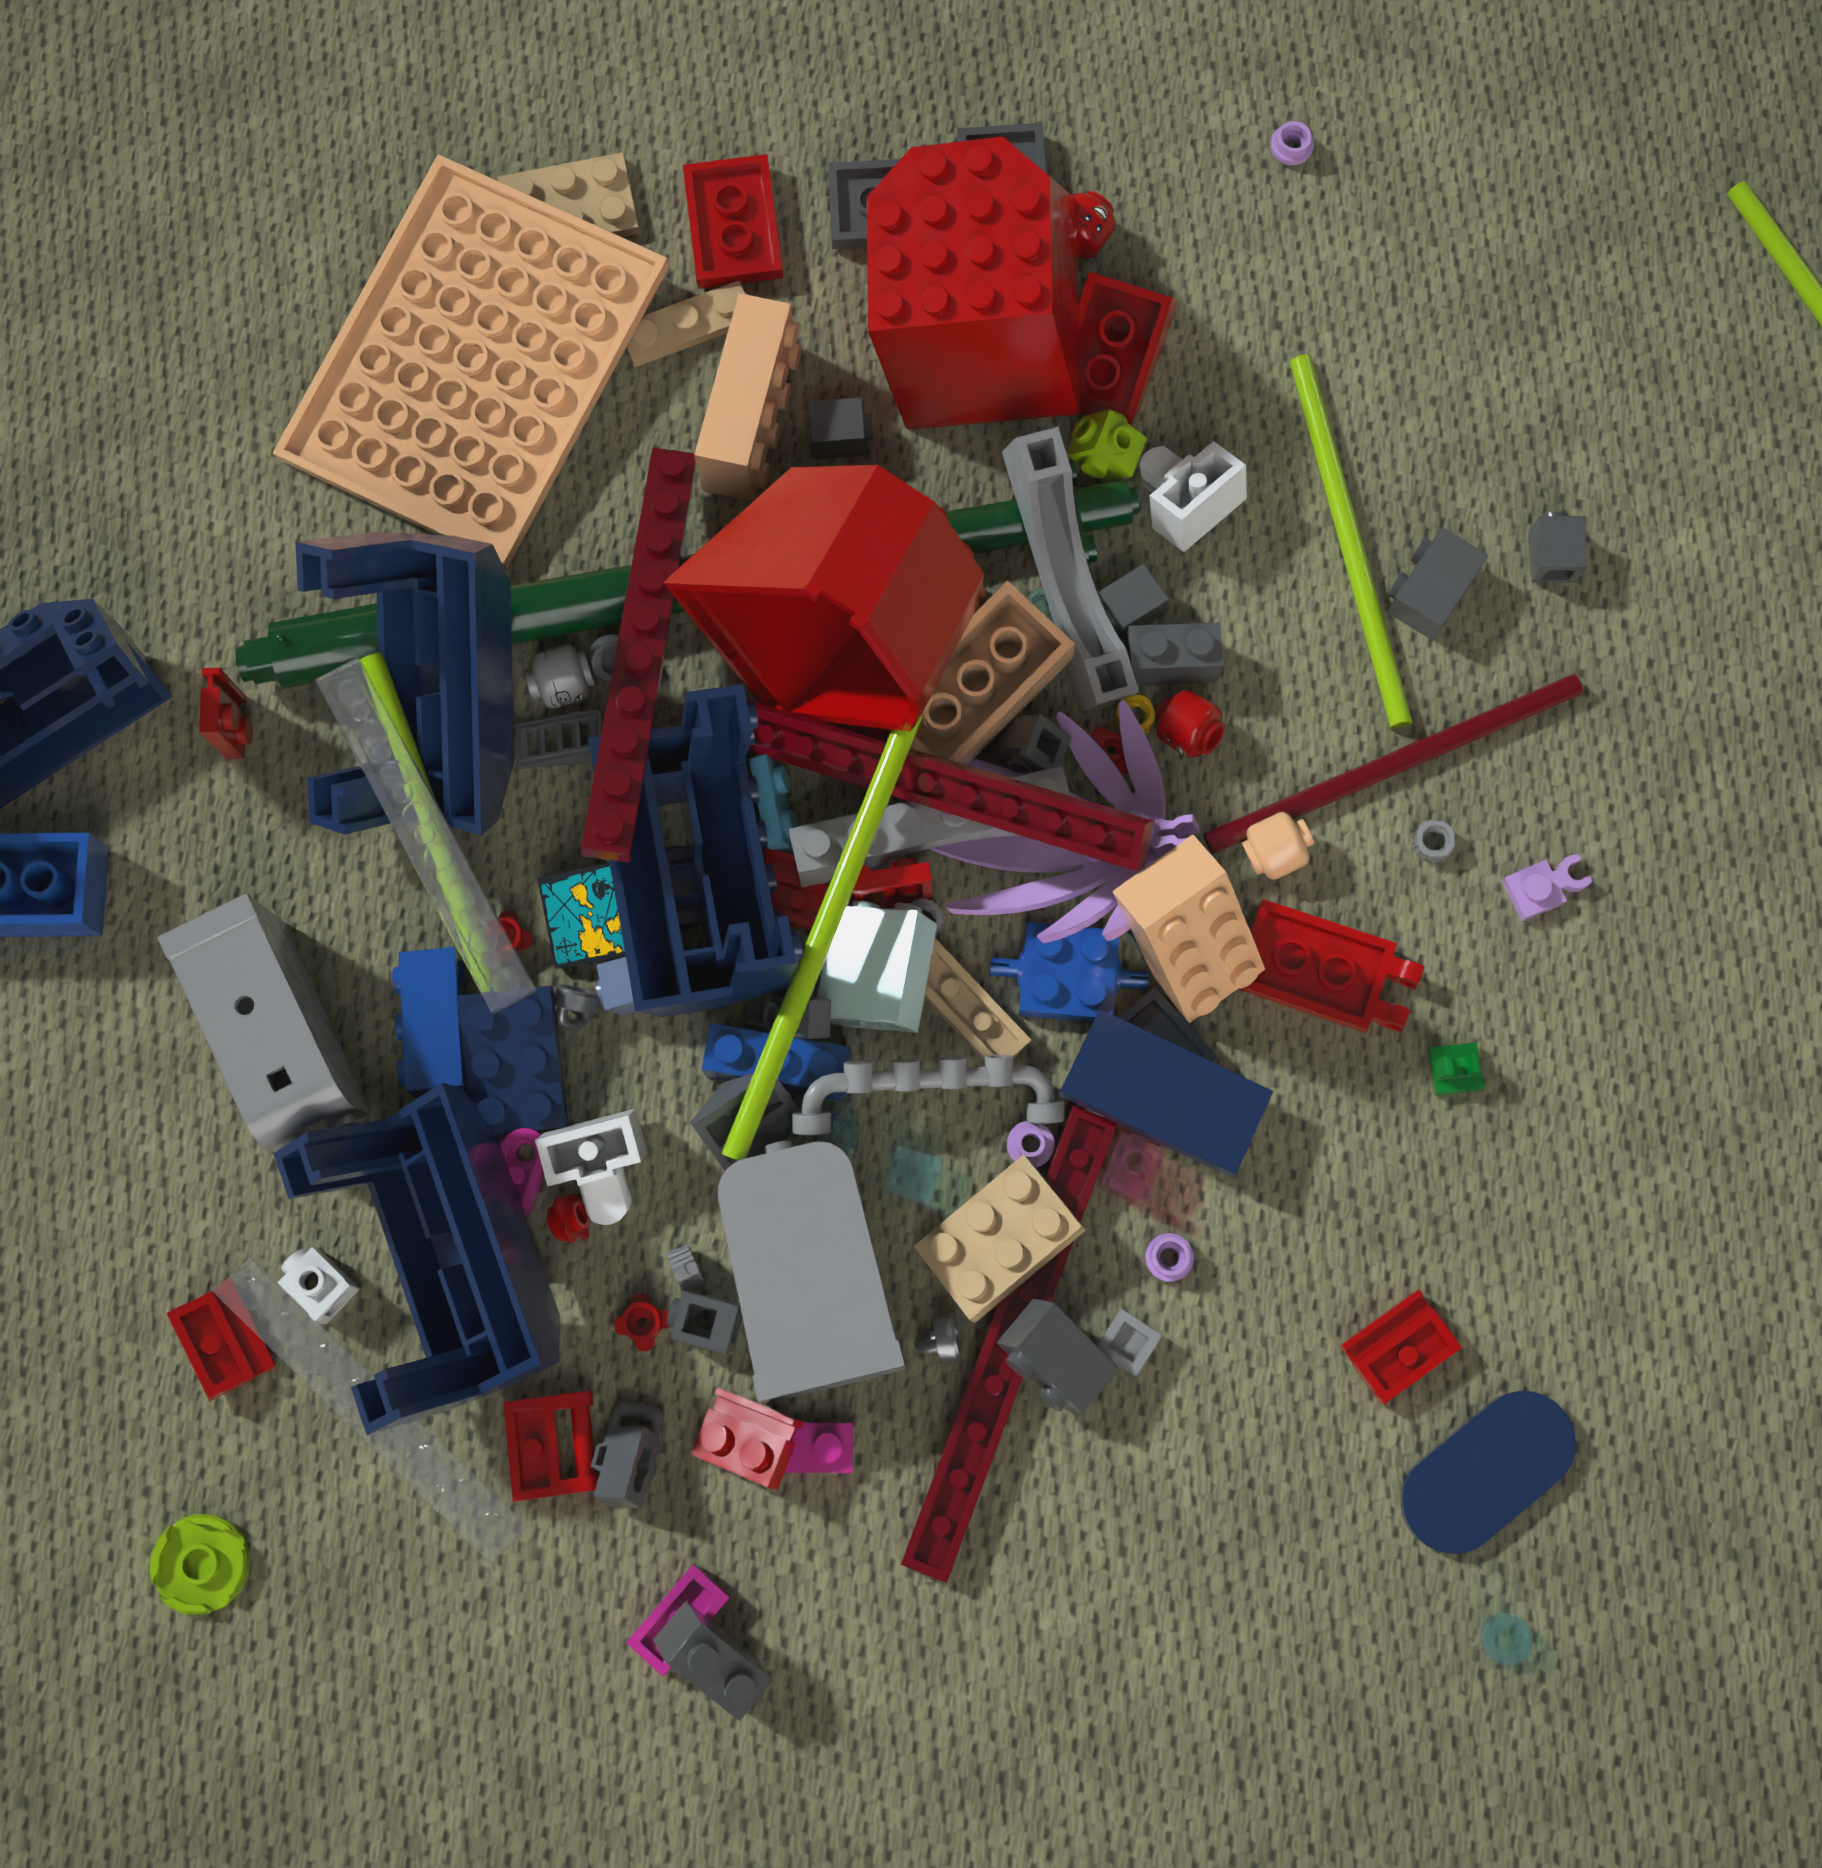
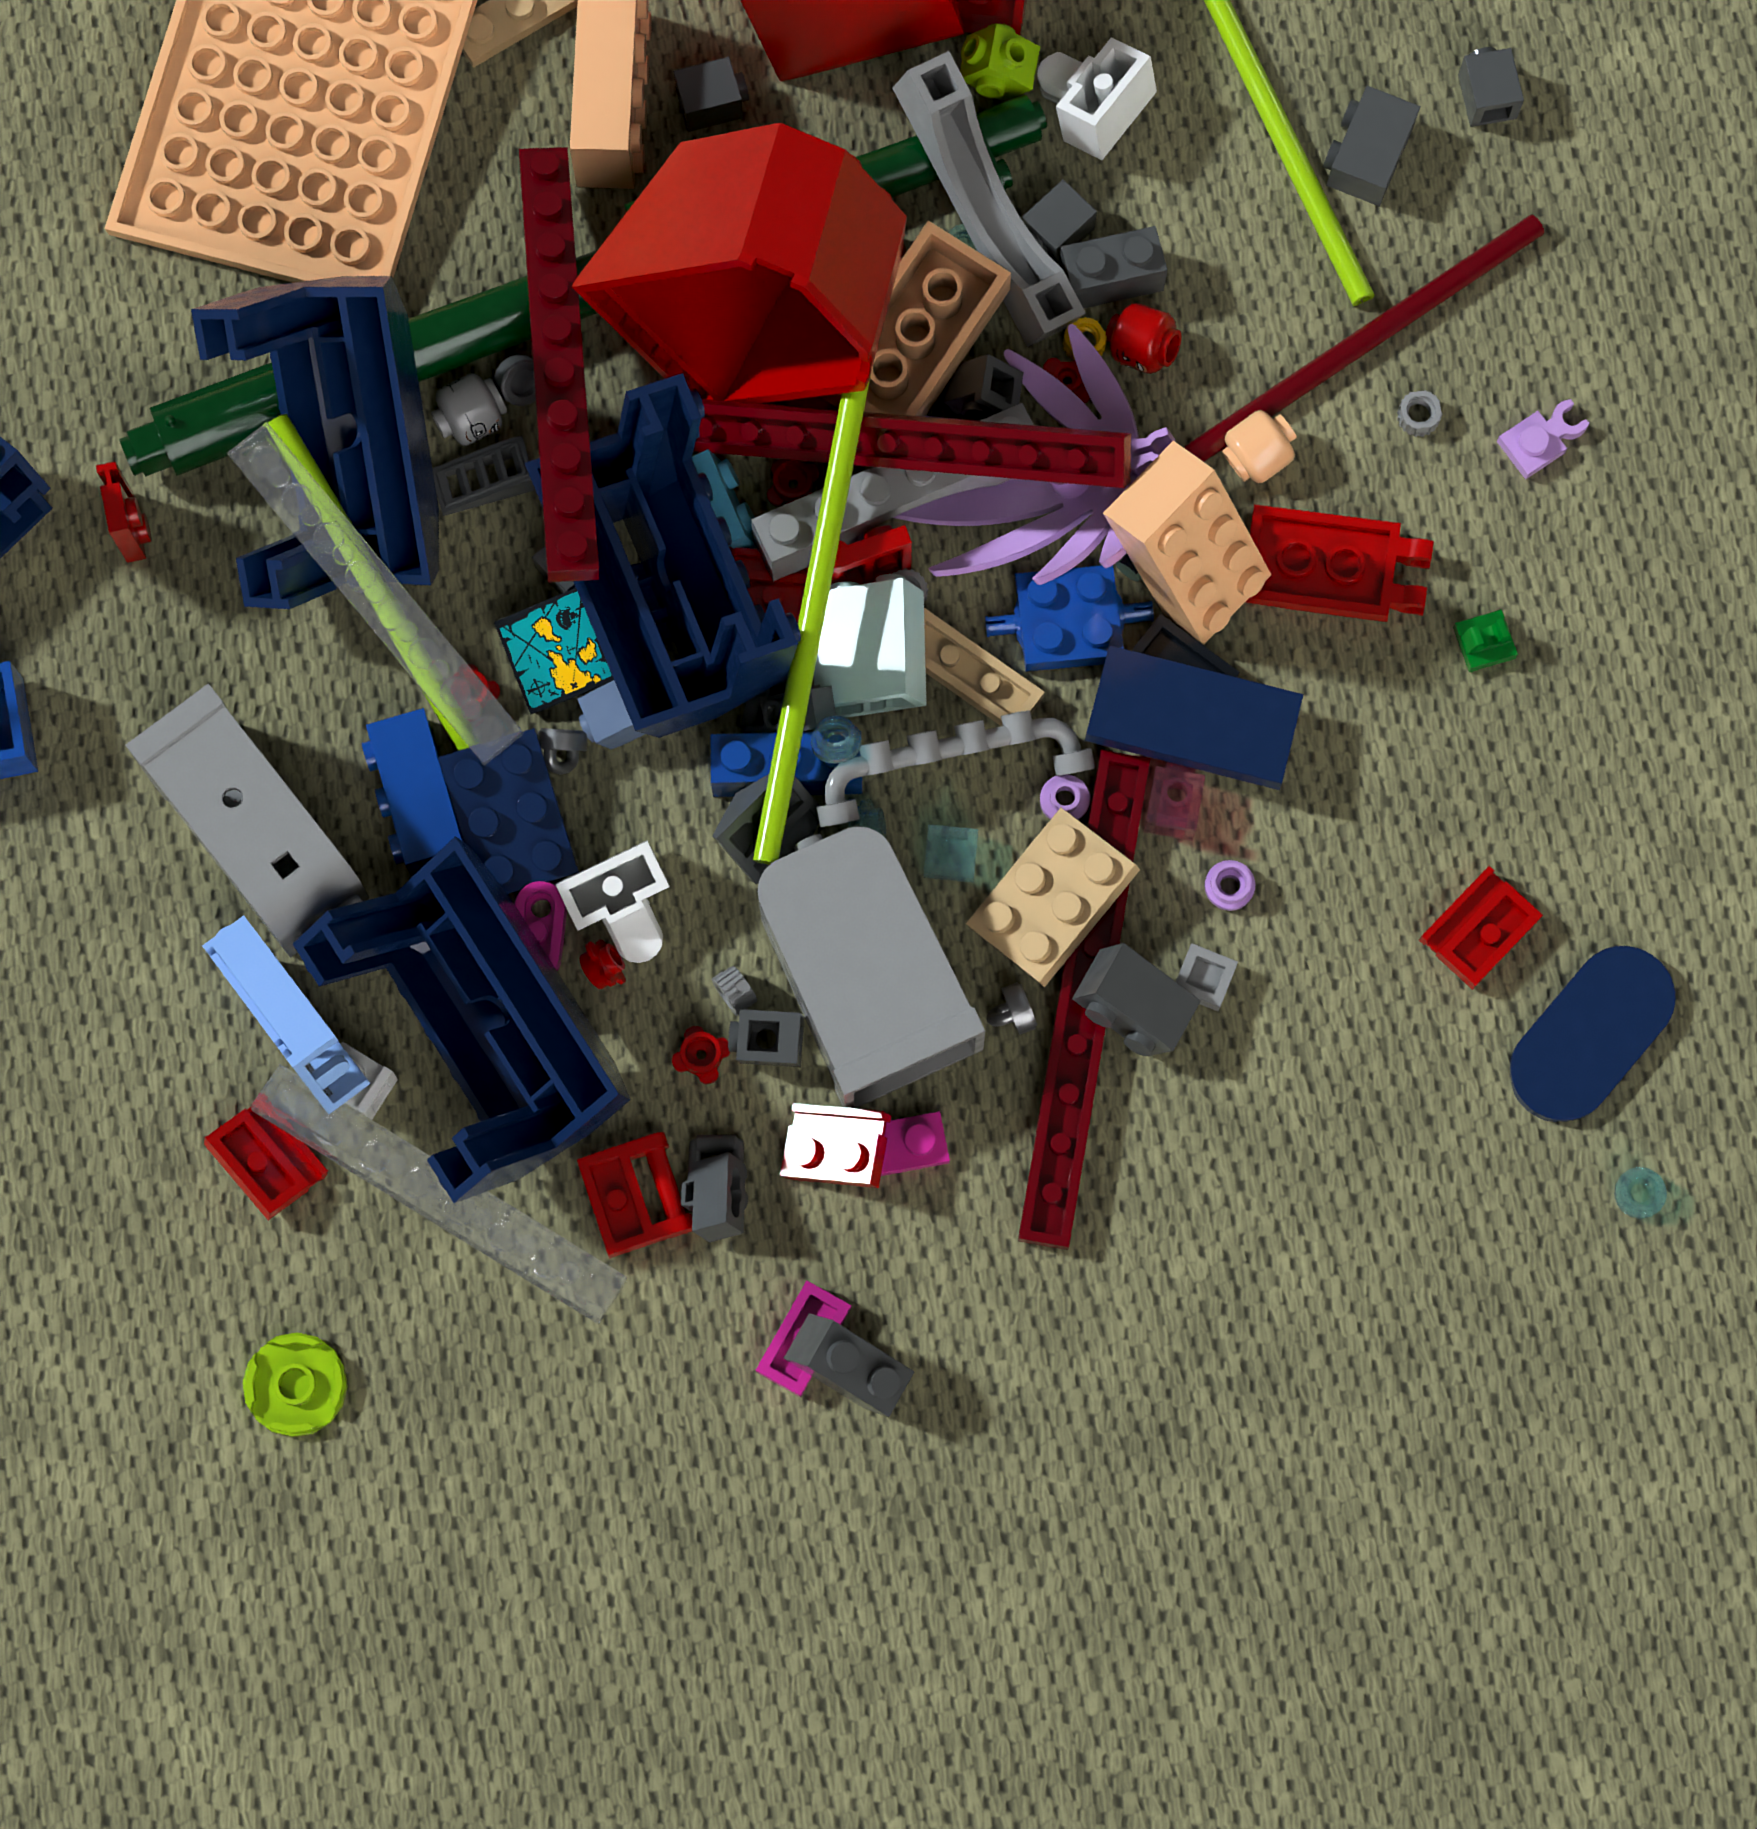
camera: 15 degrees left, 0 degrees up
(258, 1218) = (286, 1014): none -> light blue door
(819, 1043) = (832, 730): none -> clear light blue plate
(834, 788) = (788, 471): none -> red plate

